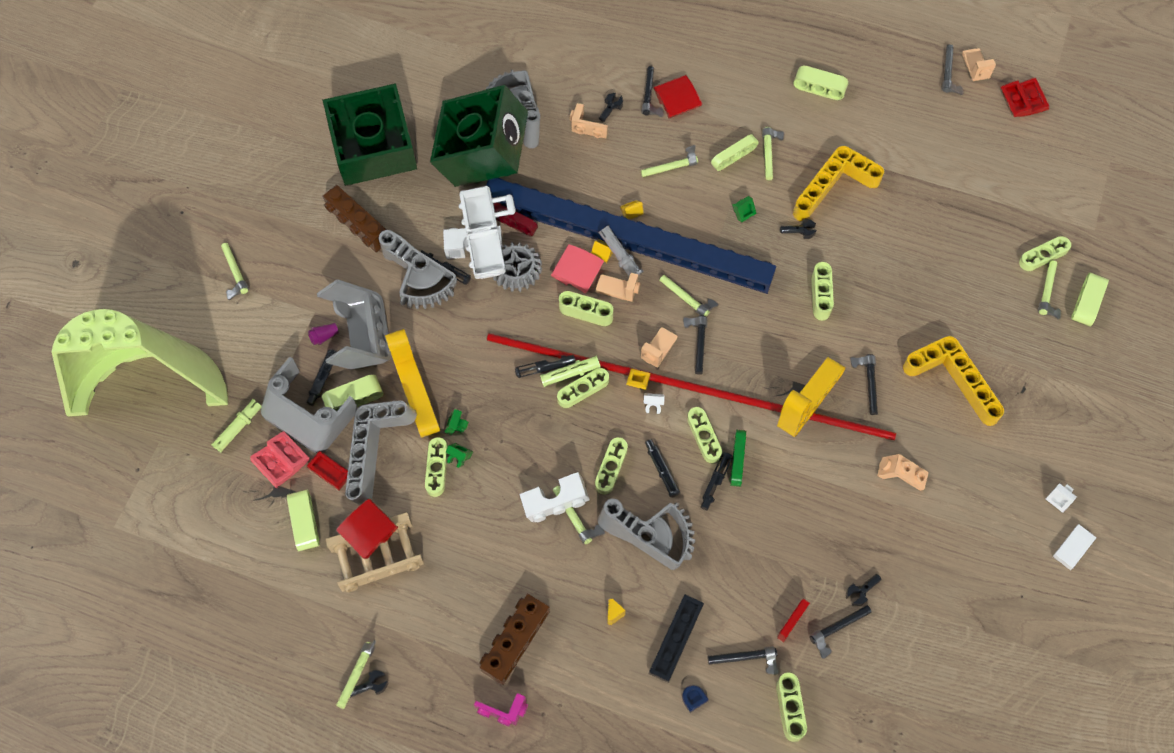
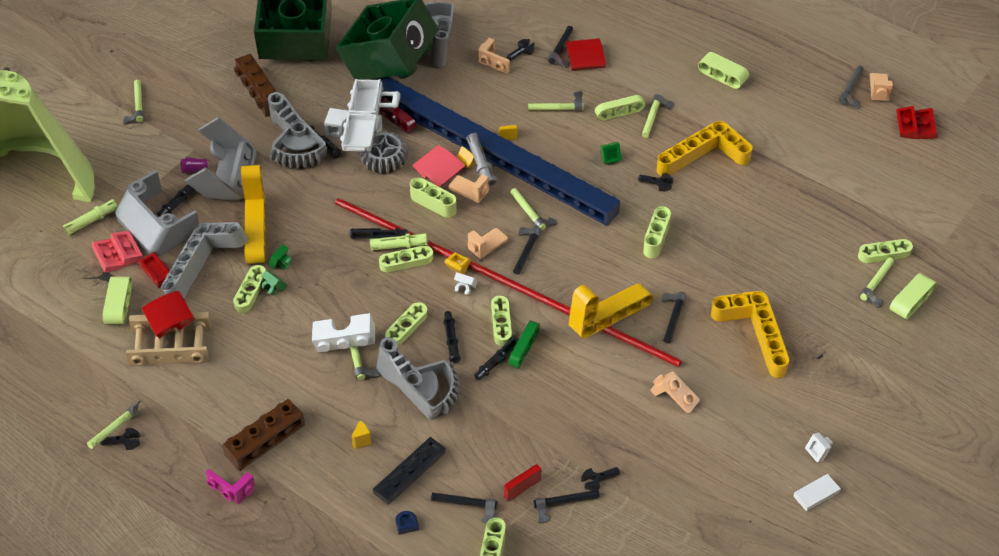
camera: 15 degrees right, 15 degrees down
(361, 390) = (206, 212): yellowish green beam -> none

